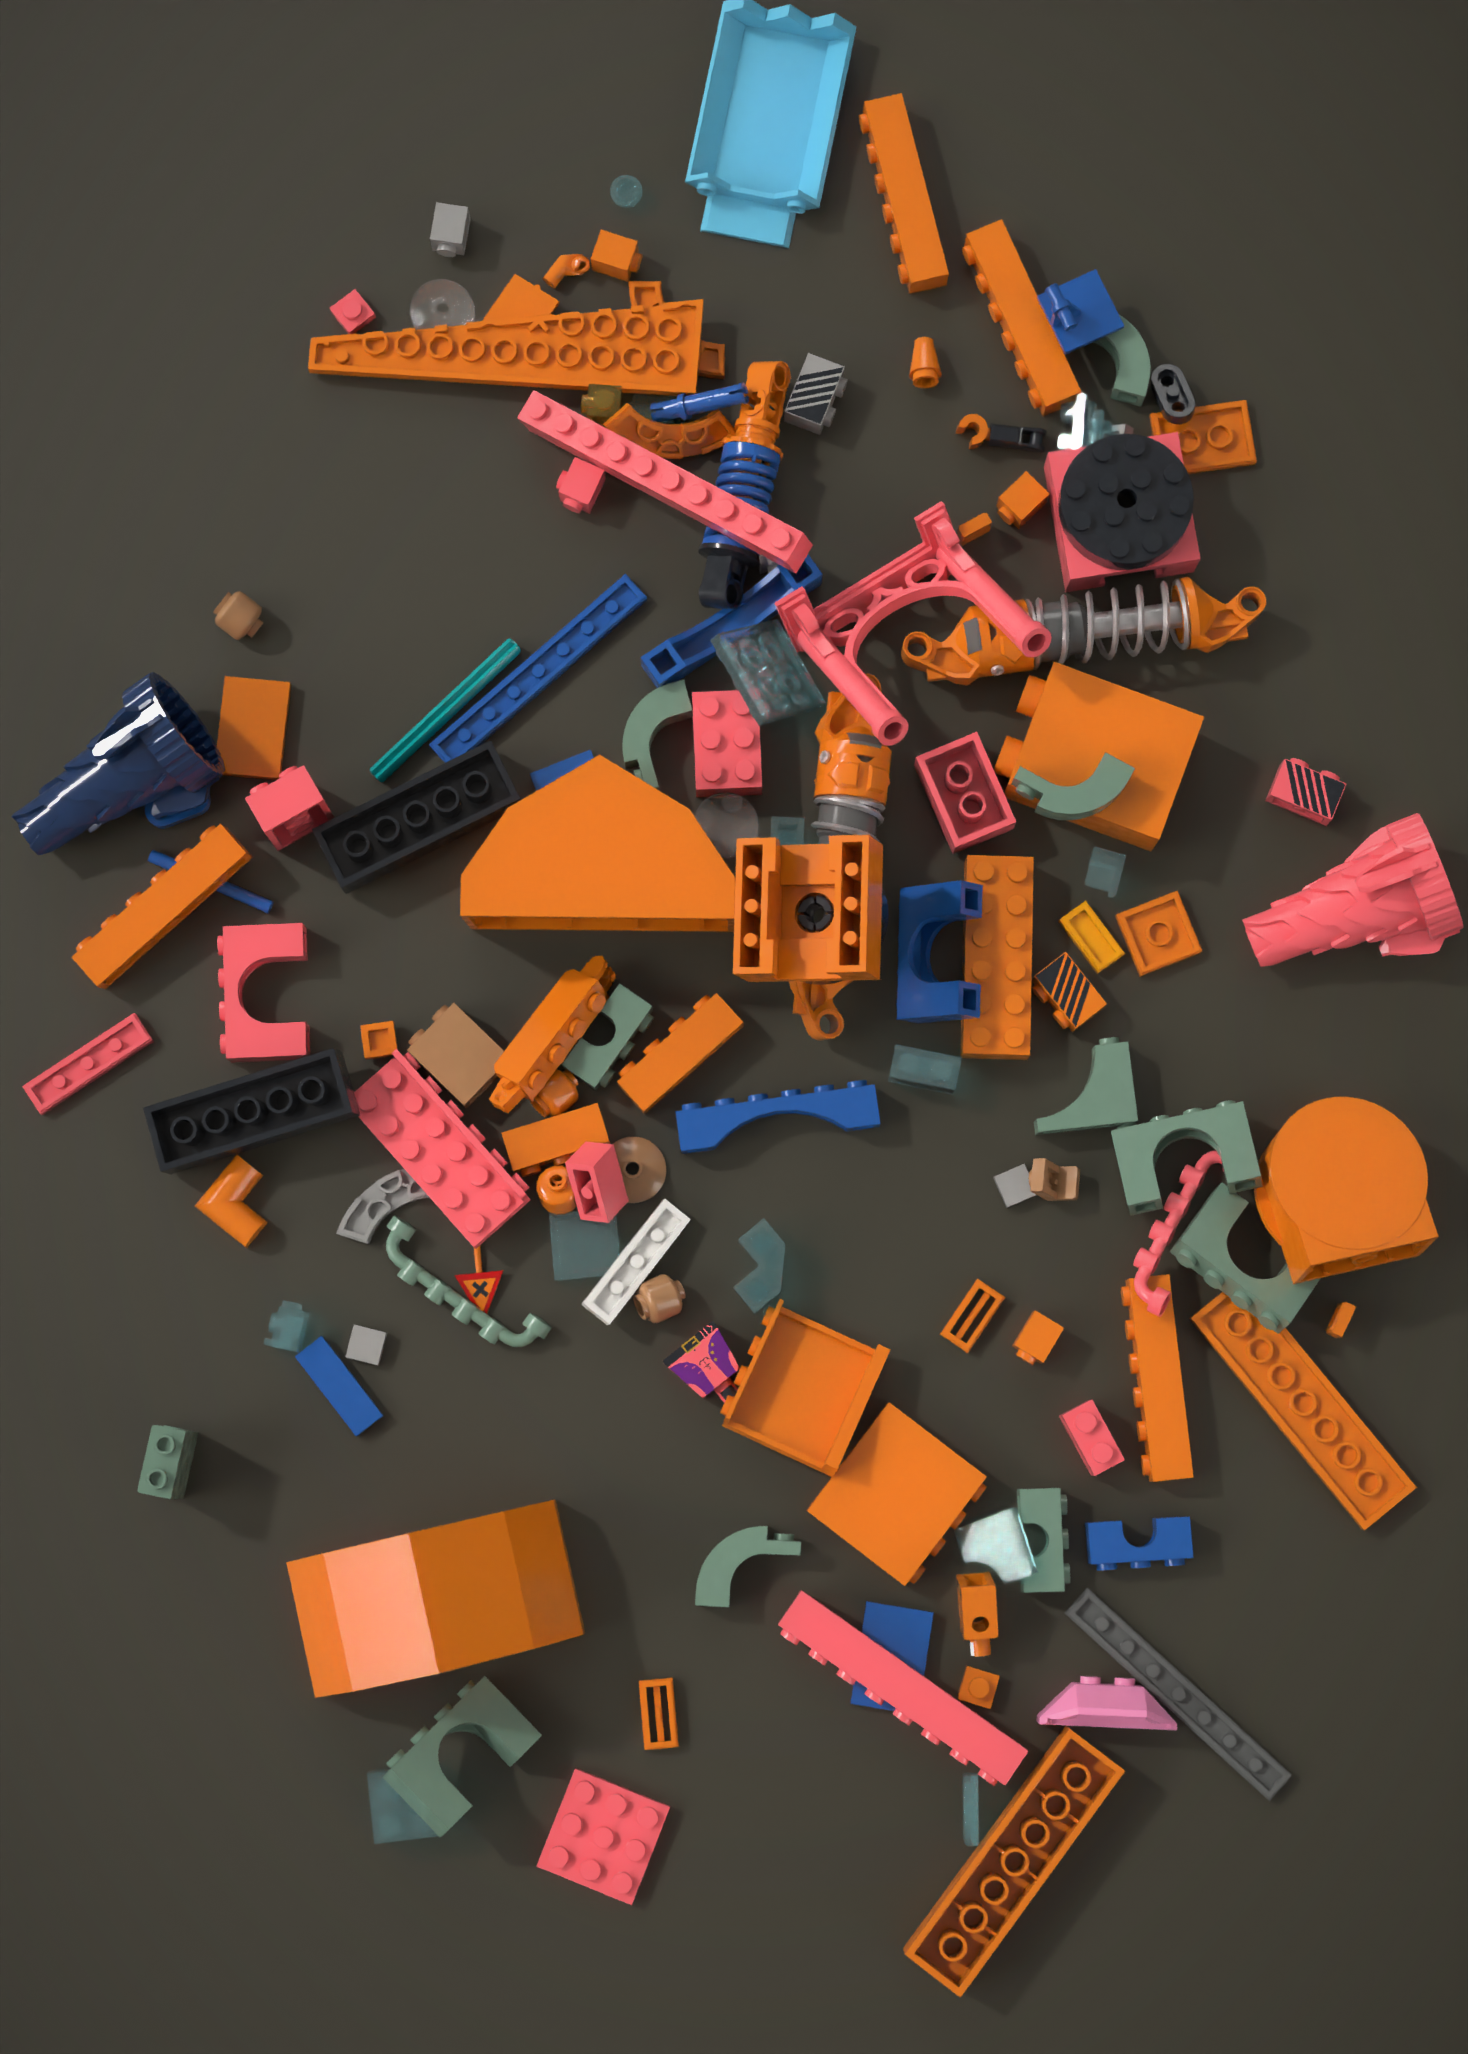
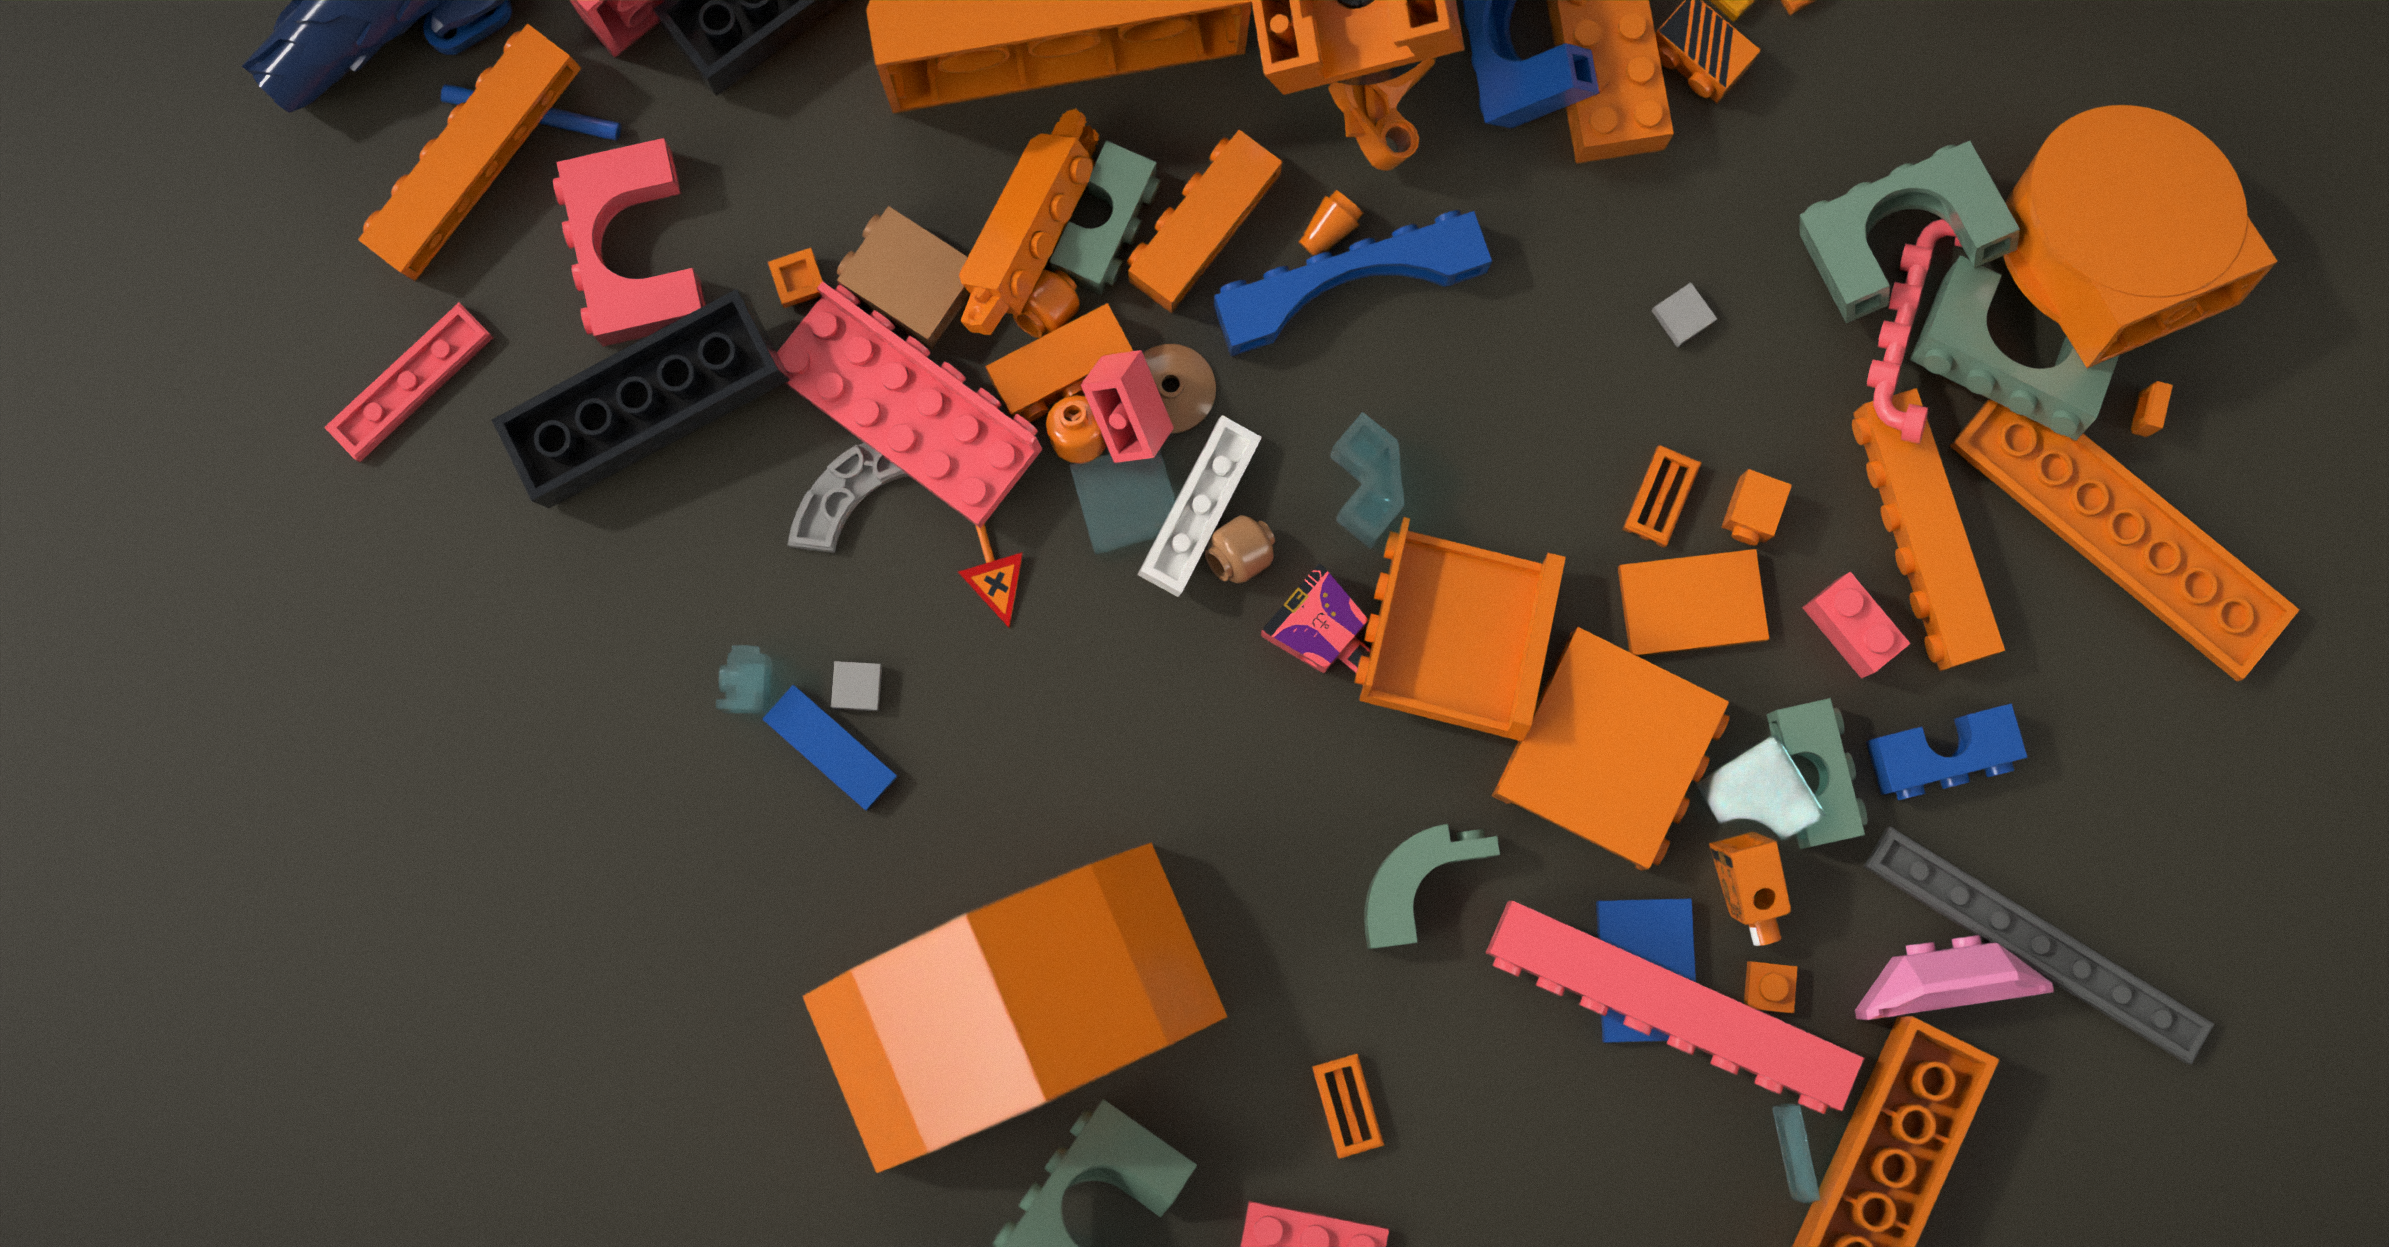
camera: 15 degrees left, 0 degrees up
(167, 1462) = (613, 889): sand green panel -> none
(225, 1203) = (628, 528): orange brick -> none
(464, 1309) = (979, 613): sand green bar -> none
(771, 1072) = (1331, 223): none -> orange cone
(924, 1069) = (1534, 182): clear light blue brick -> none
(979, 1398) = (1693, 603): none -> orange tile
(1053, 1181) = (1736, 299): medium nougat bracket -> none
(1106, 1098) = (1781, 177): sand green arch -> none

